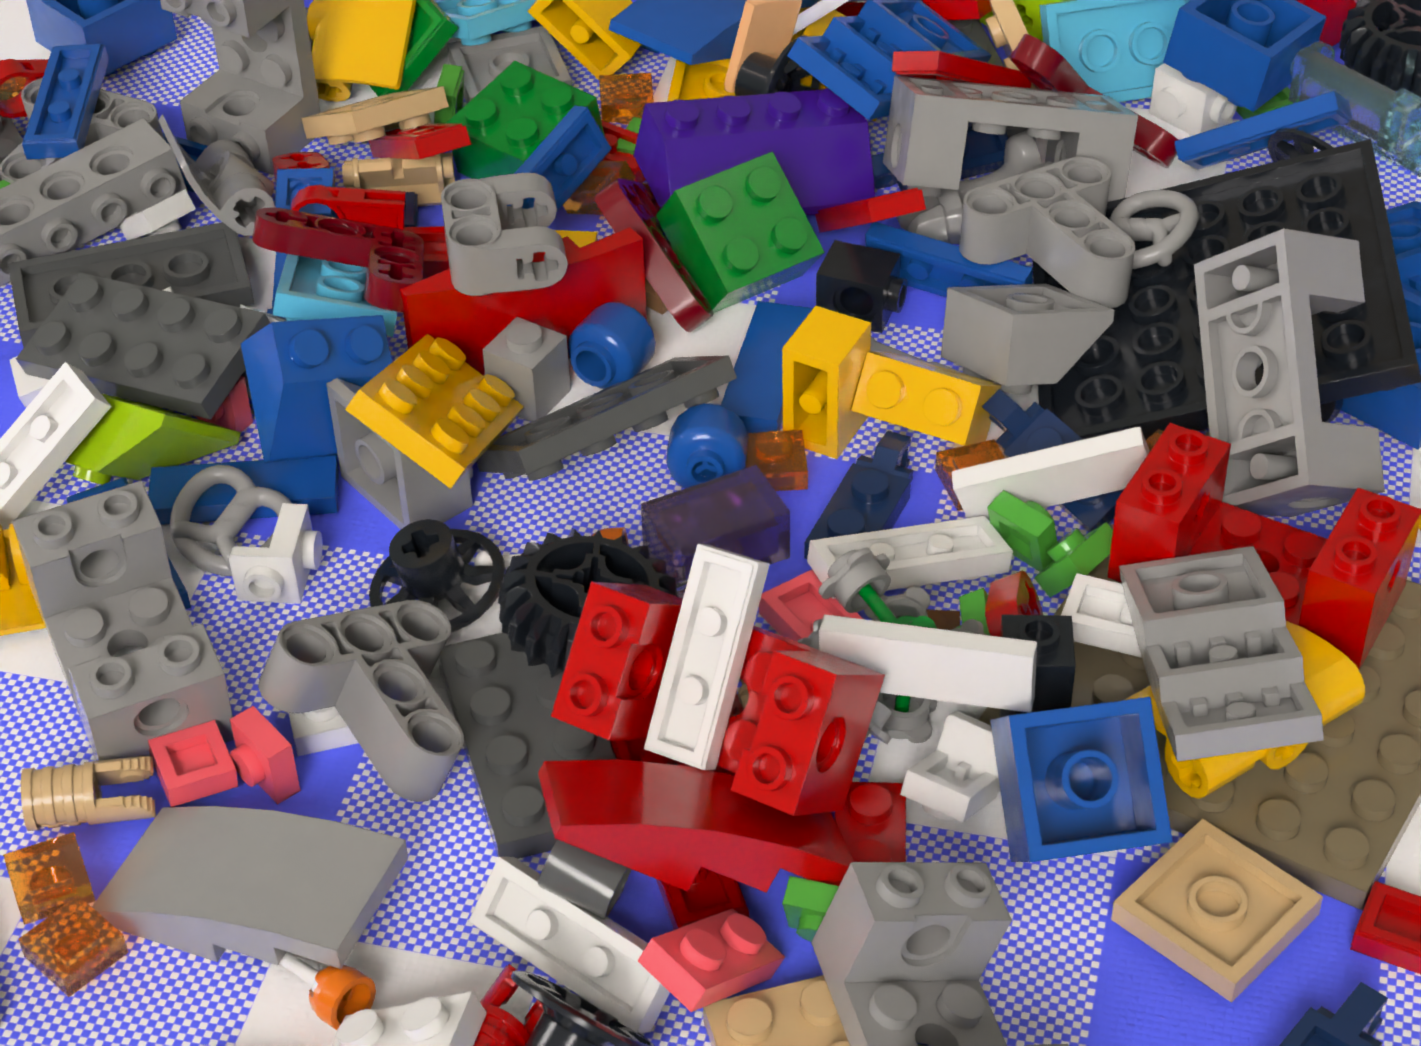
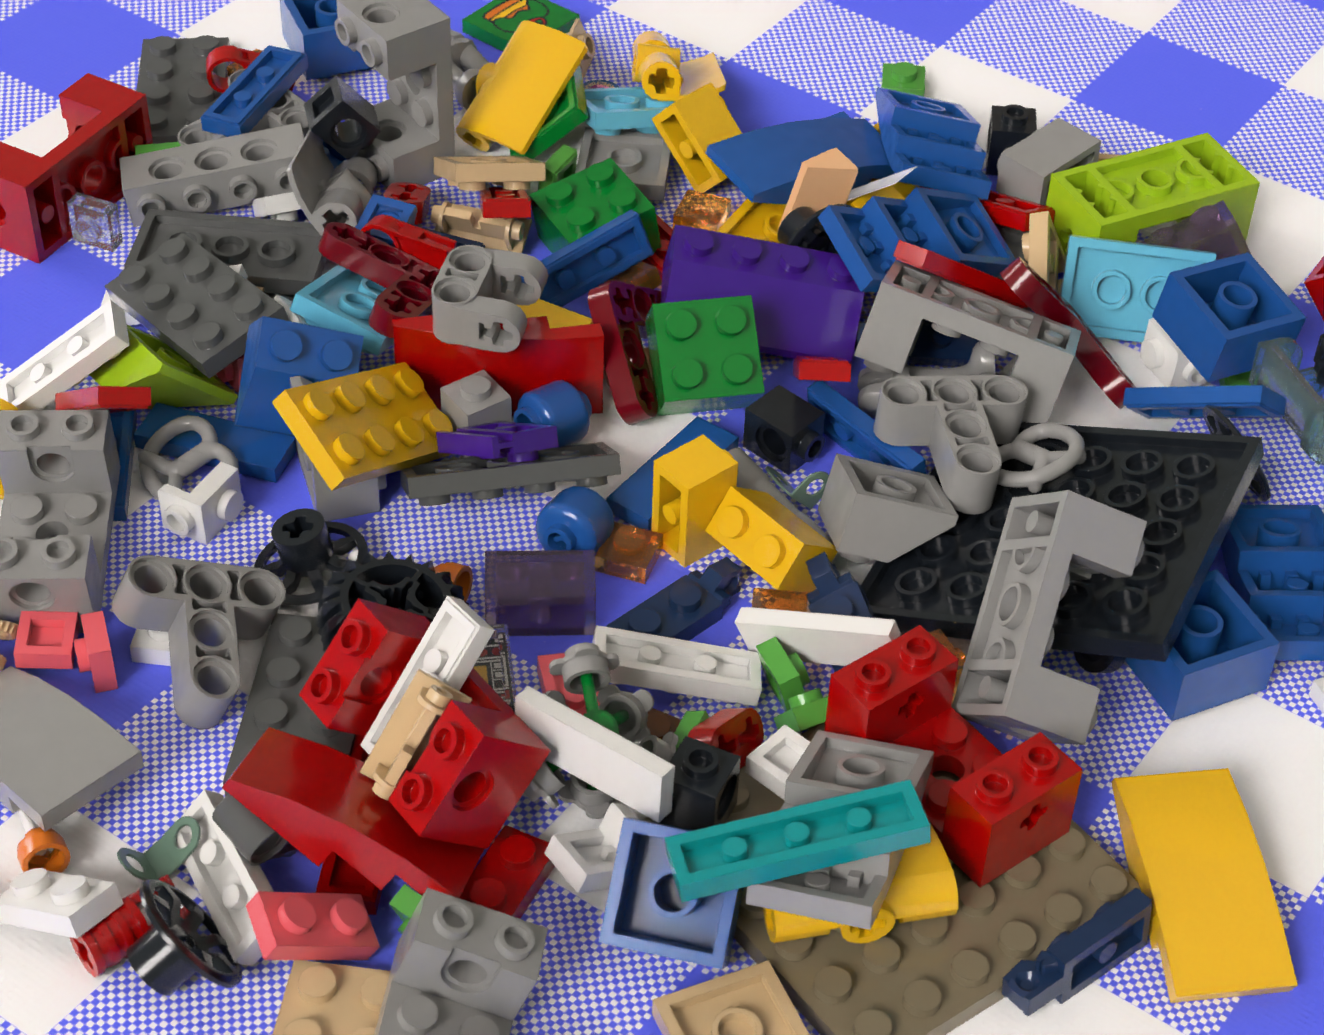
camera: 20 degrees right, 0 degrees up
(120, 472) = (110, 398): none -> red tile
(191, 99) = (340, 102): none -> black brick
(478, 950) = (164, 855): none -> sand green piece
(584, 383) = (499, 440): none -> dark purple plate
(723, 710) = (408, 731): none -> tan hinge
(918, 346) = (800, 494): none -> sand green piece
(1208, 674) = (797, 840): none -> teal plate

